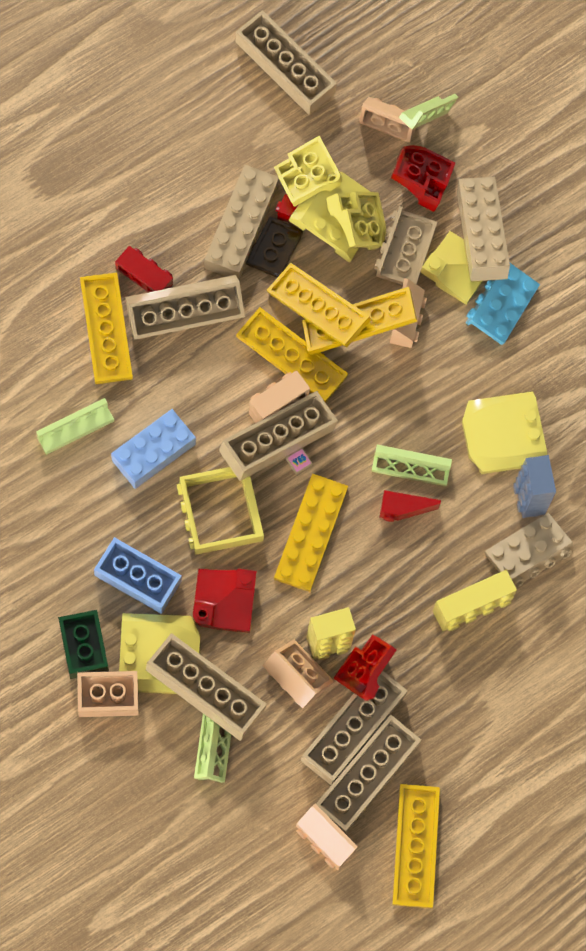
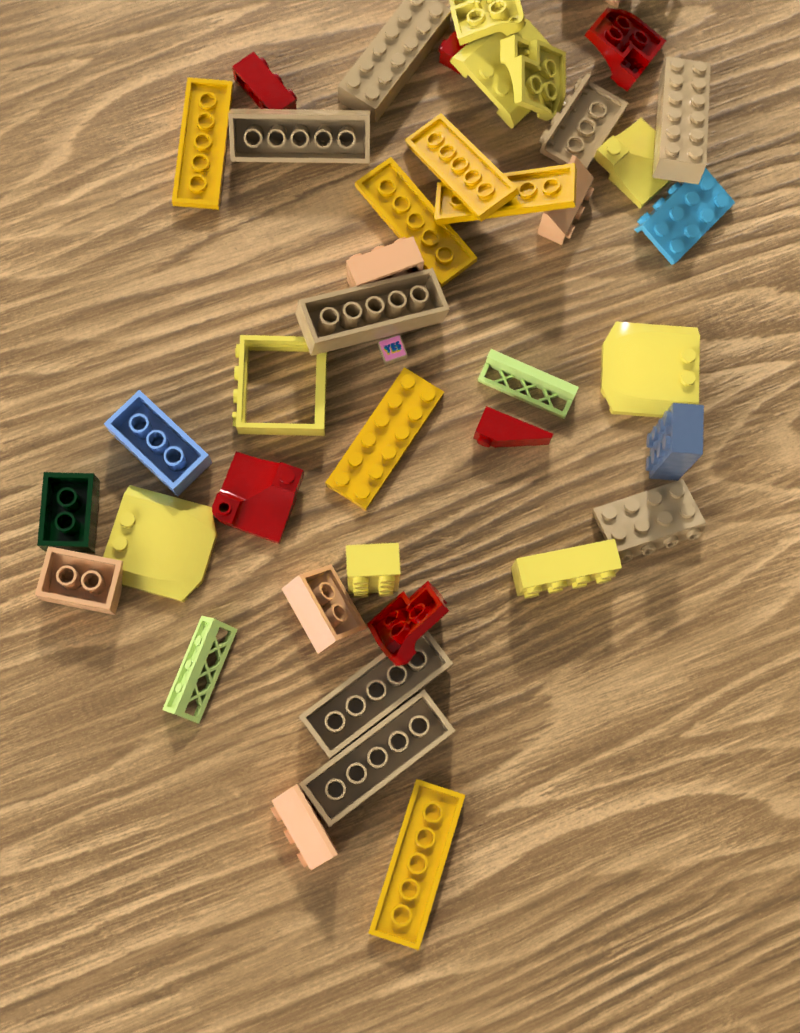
camera: 15 degrees right, 5 degrees up
(74, 426) = (135, 250): yellowish green fence -> none
(153, 448) = (219, 295): light blue brick -> none
(205, 687) = (200, 600): tan brick -> none
(274, 247) = (427, 93): dark brown tile -> none

